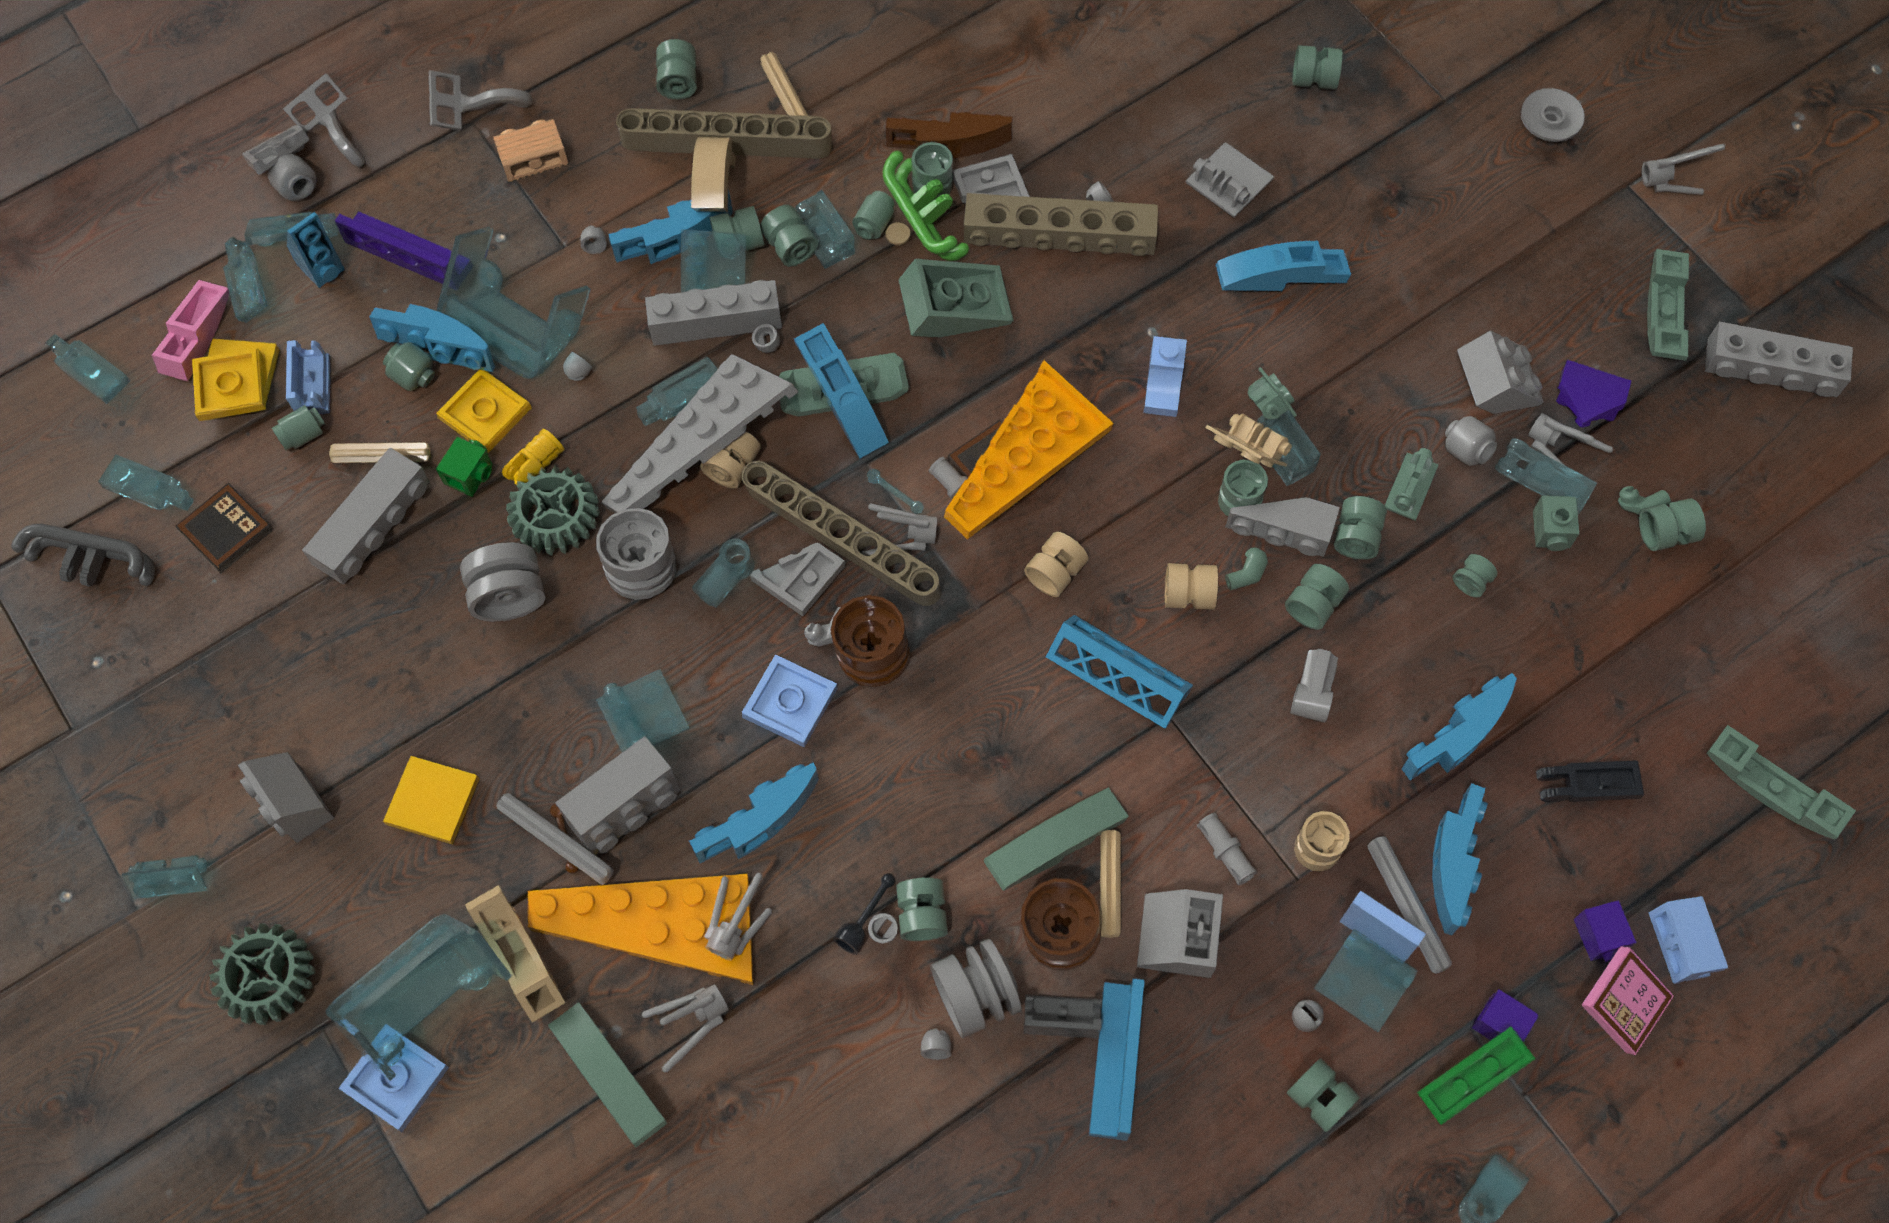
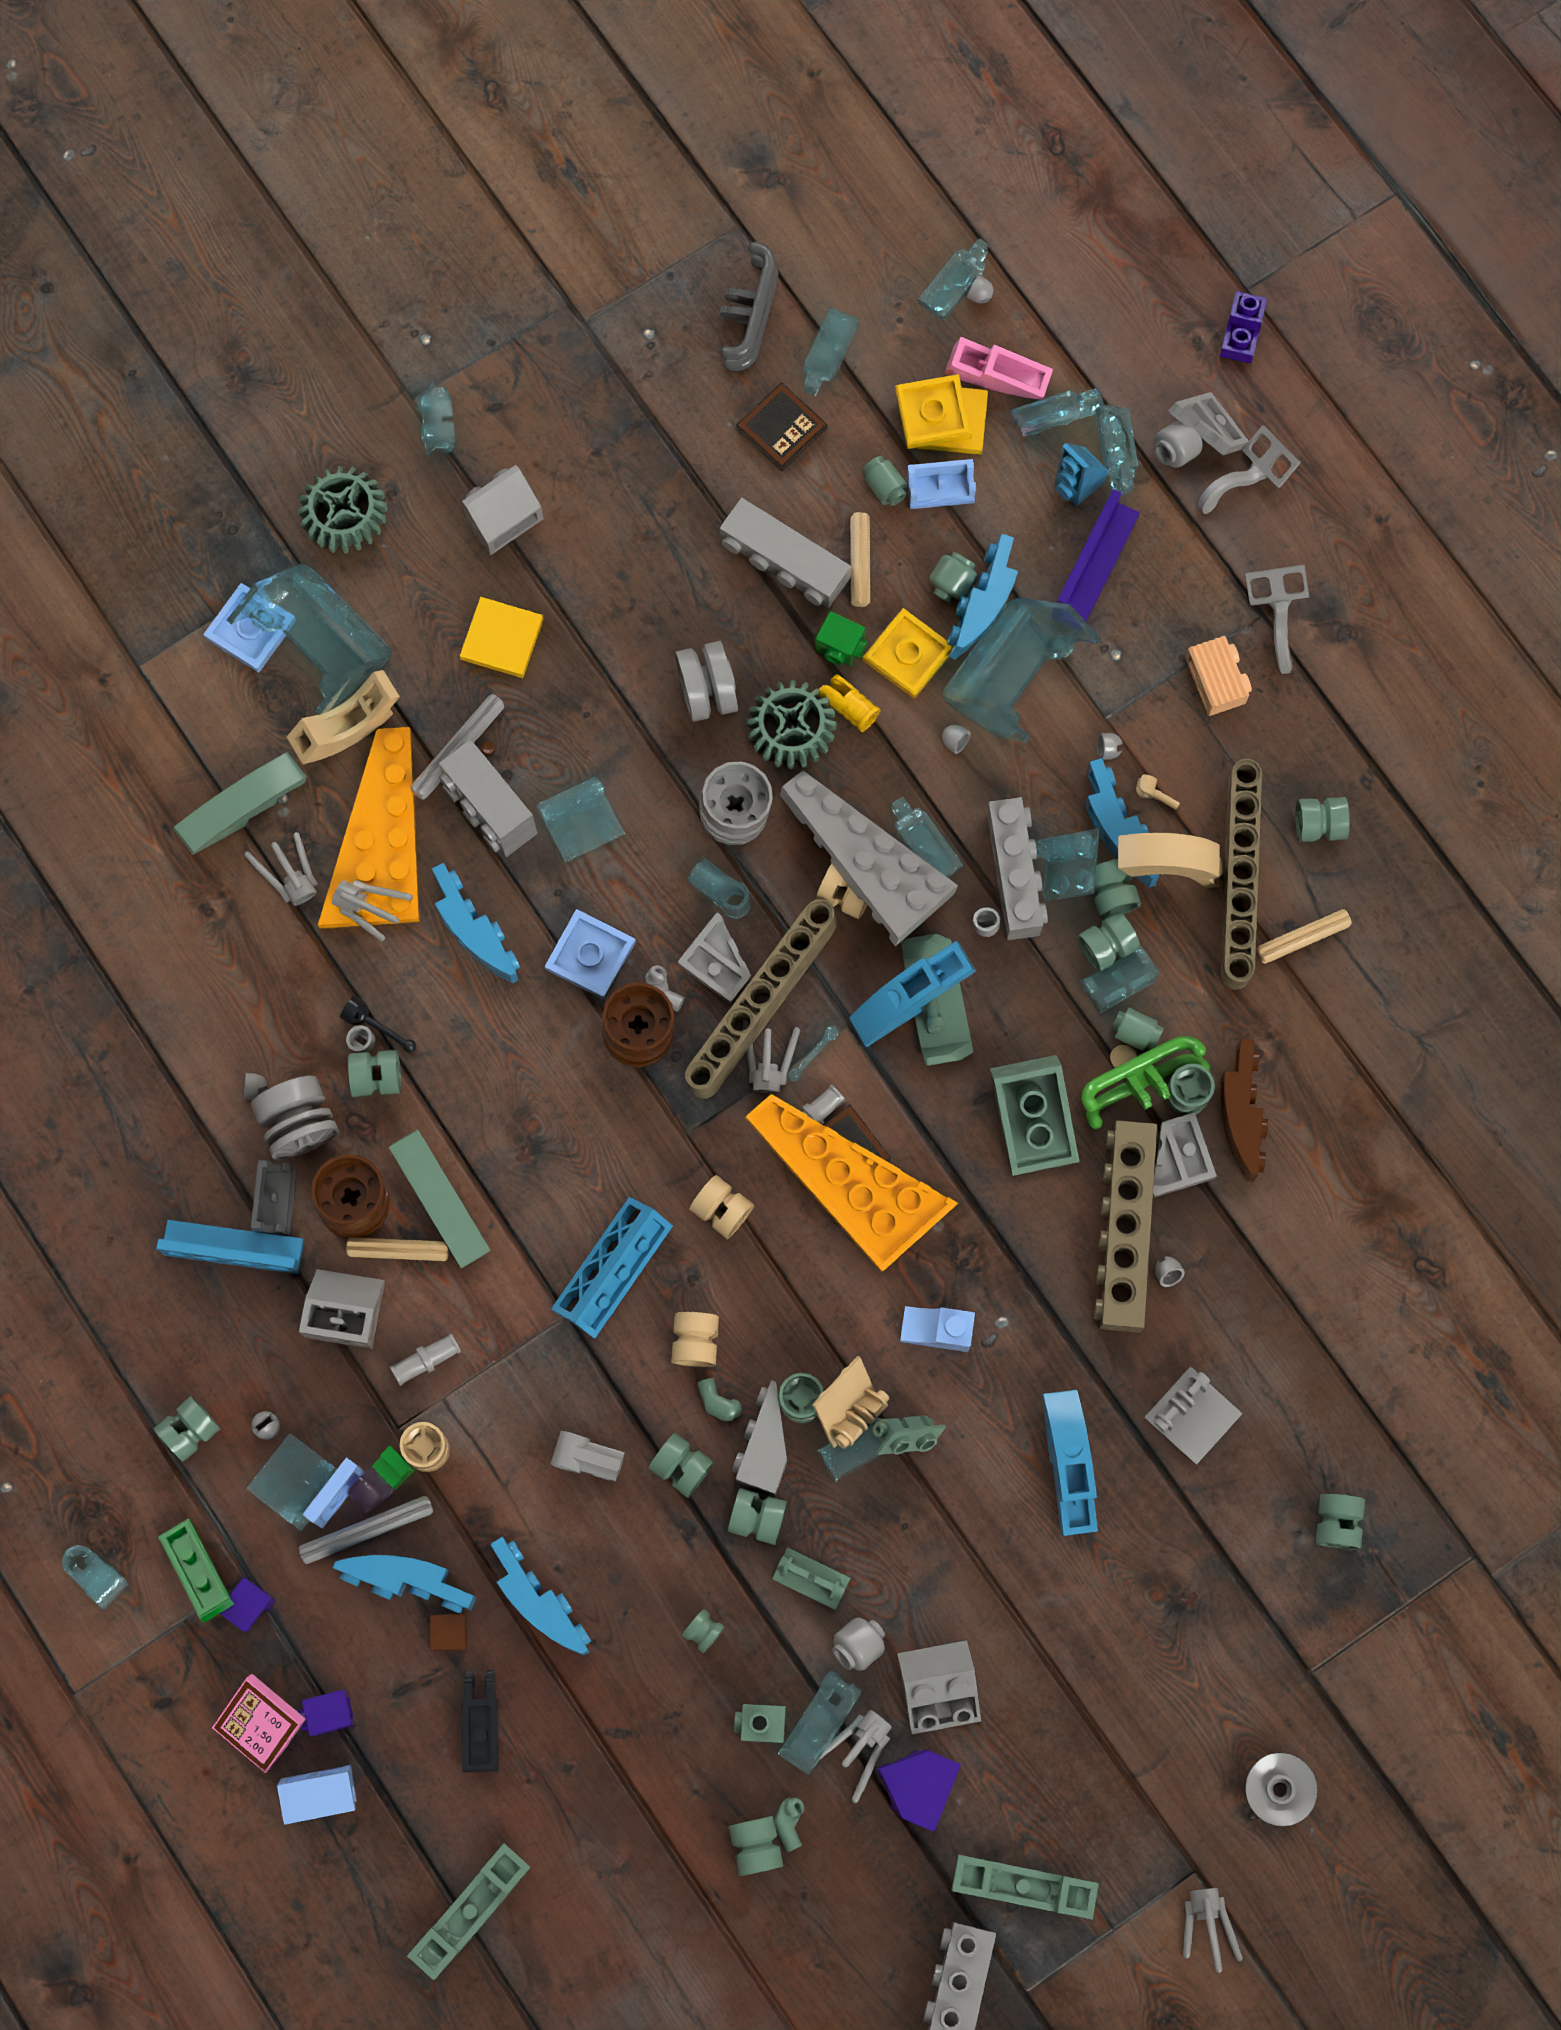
camera: 90 degrees right, 10 degrees up
(103, 345) = (981, 290): none -> light grey hinge
(174, 128) = (1243, 327): none -> dark purple slope
(637, 209) = (1146, 789): none -> tan hand
(1348, 878) = (380, 1480): none -> leg
(1504, 818) = (448, 1632): none -> reddish brown tile

